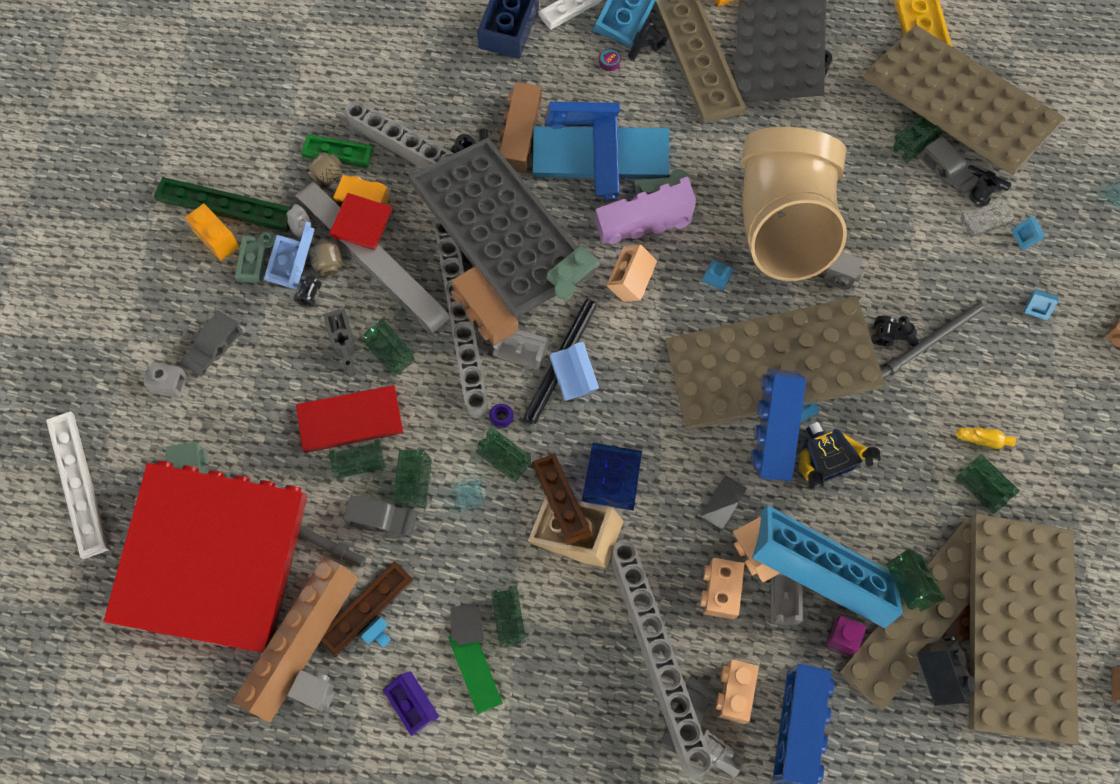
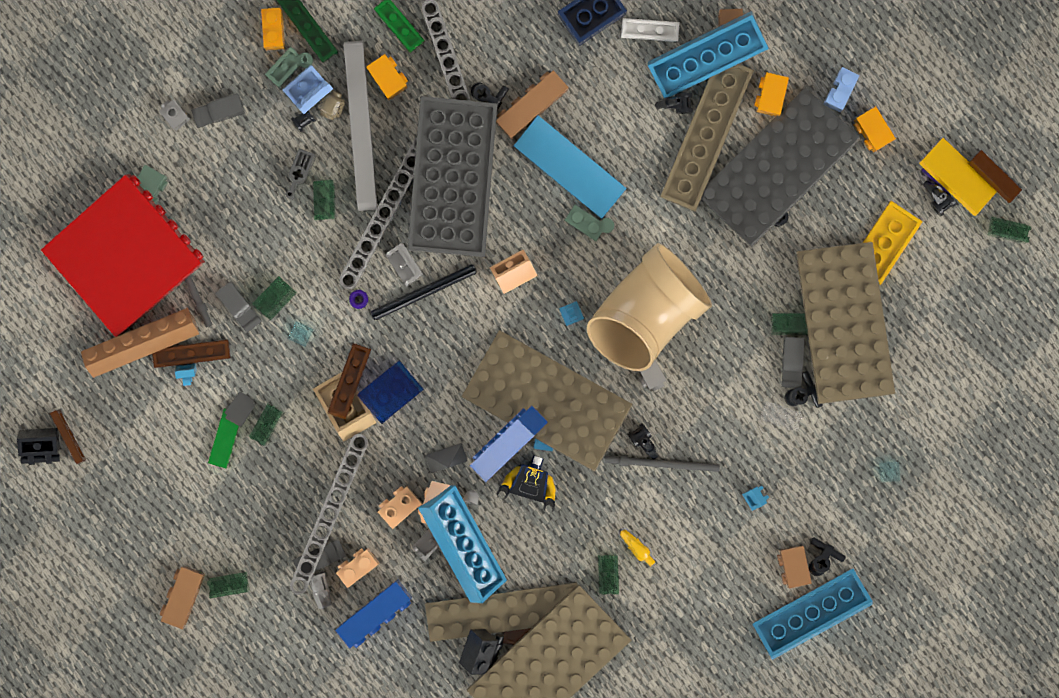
camera: 40 degrees right, 20 degrees up
(77, 485) = (79, 142): white tile -> none
(297, 219) = (332, 67): light grey hinge -> none
(312, 690) = (128, 378): light grey brick -> none
(325, 169) = (378, 36): dark tan head -> none
(349, 419) = (267, 228): red tile -> none
(357, 460) = (252, 258): clear green hinge -> none
(361, 221) = (369, 100): red tile -> none
(410, 703) = (177, 427): dark purple slope -> none
(484, 306) = (397, 224): medium nougat brick -> none
(503, 455) = (339, 326): clear green hinge -> none
(571, 271) = (465, 248): sand green hinge -> none
(574, 371) = (422, 307): light blue panel -> none
(605, 134) = (572, 166): blue piece -> none
(609, 59) = (639, 96): magenta tile -> none
(647, 213) = (556, 236): lavender wedge -> none
(845, 635) = (444, 588): magenta brick -> none
(915, 580) = (510, 591): clear green hinge -> none
(1028, 233) = (796, 447): dark azure tile -> none

